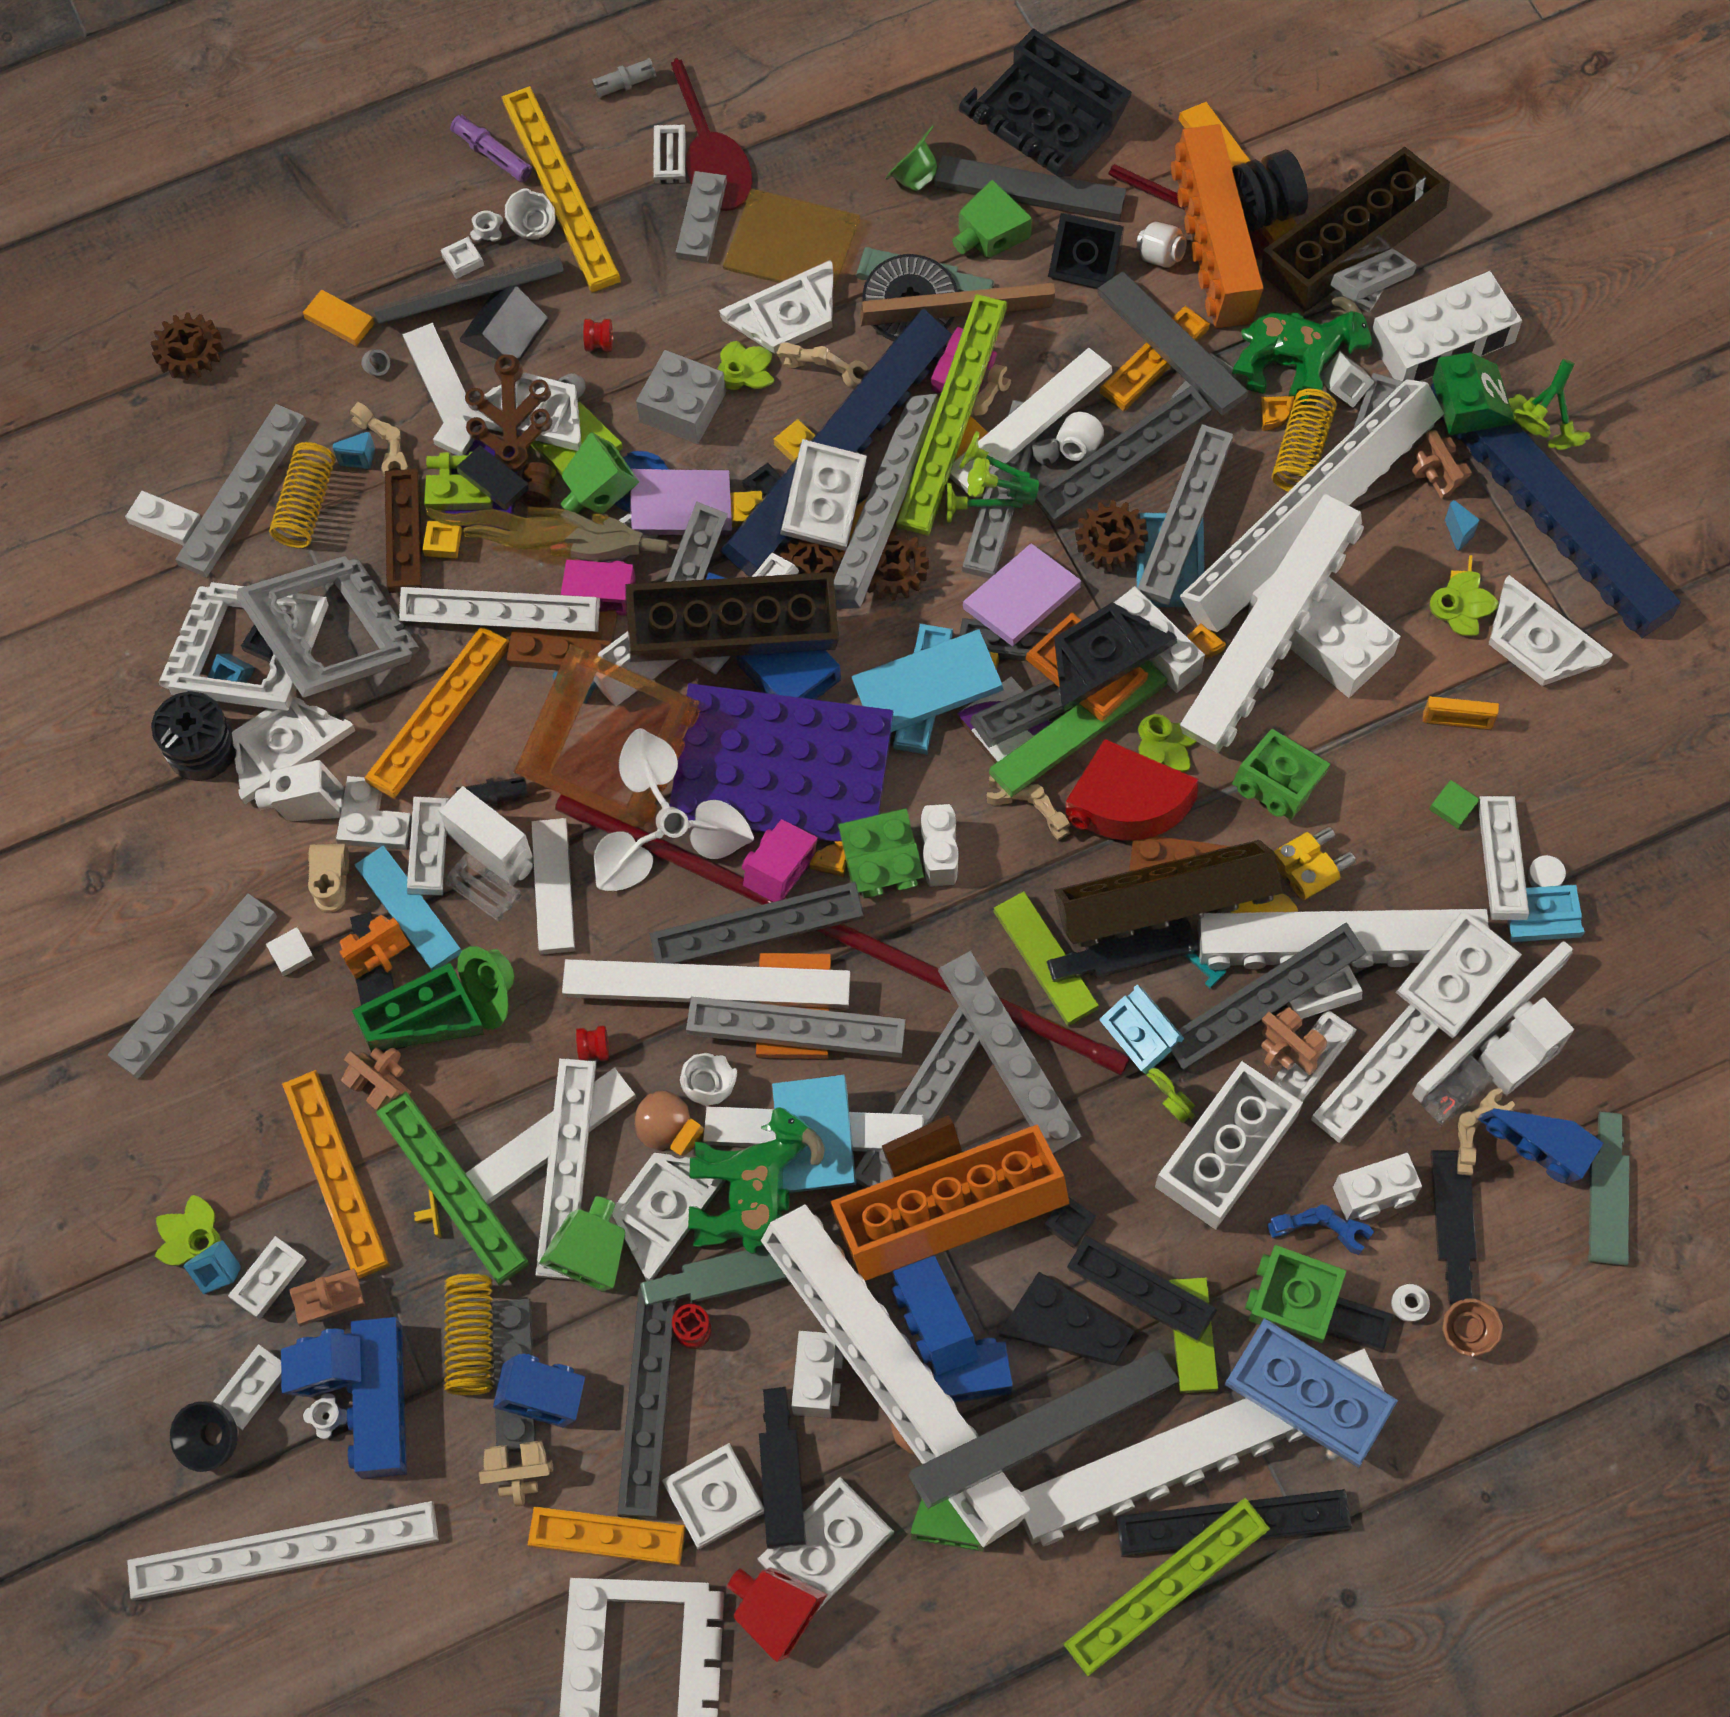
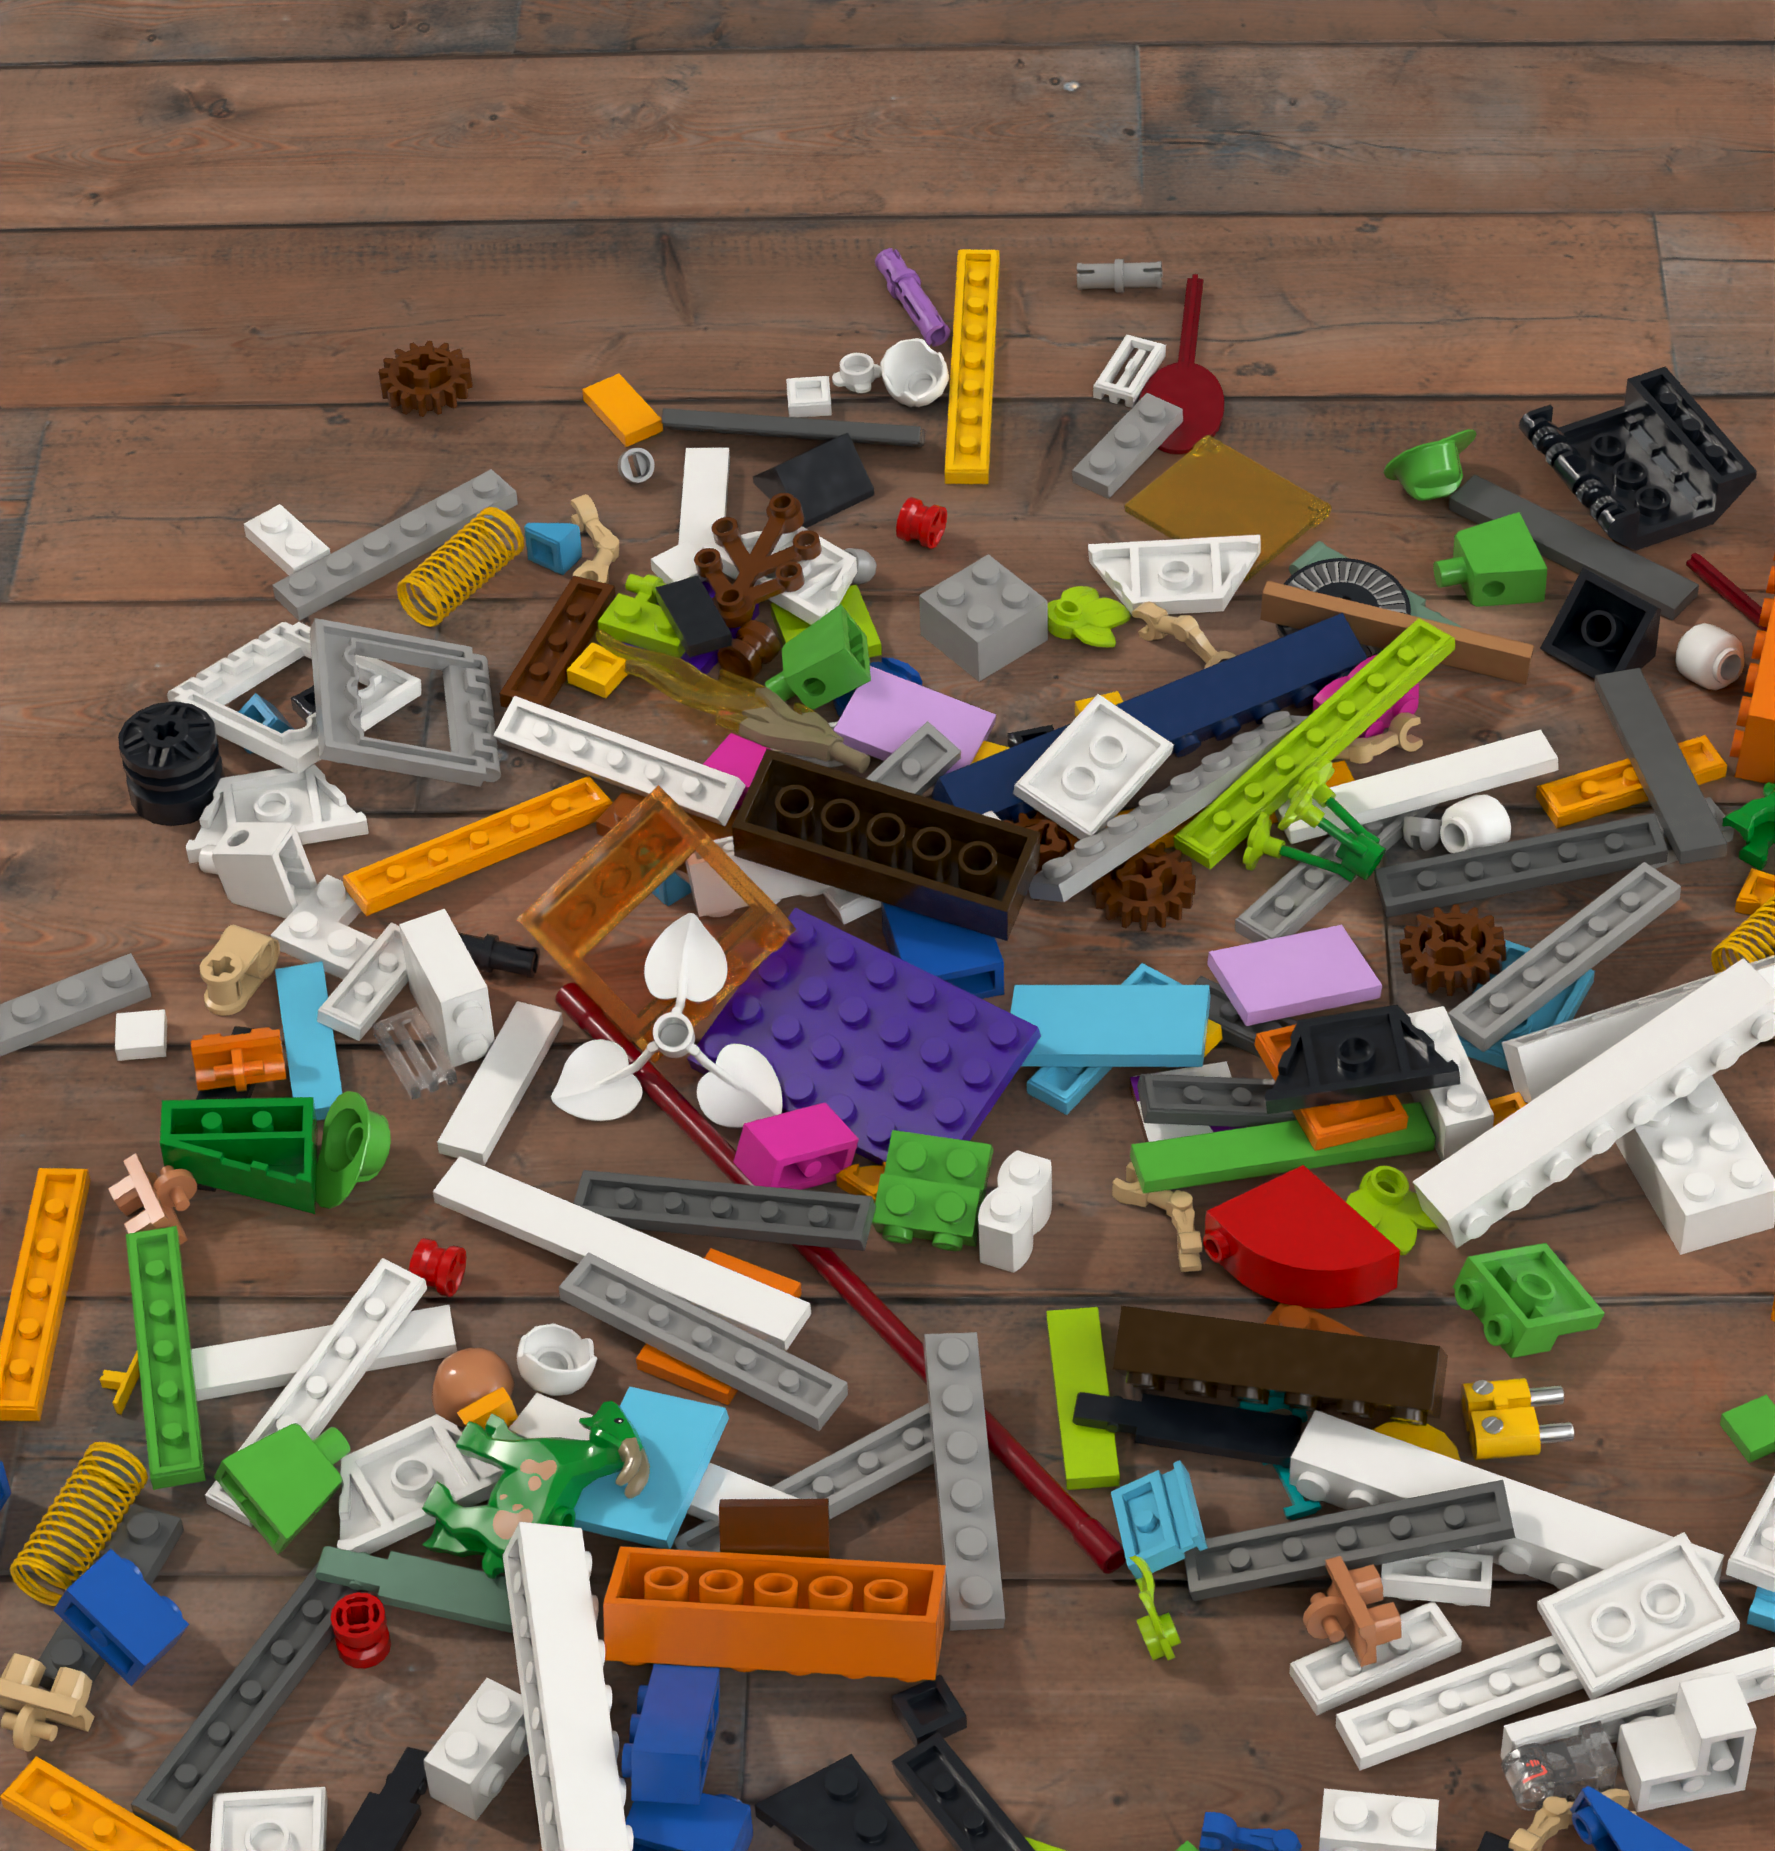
camera: 25 degrees right, 20 degrees down
(1228, 1145) = (1195, 1700): white brick -> none

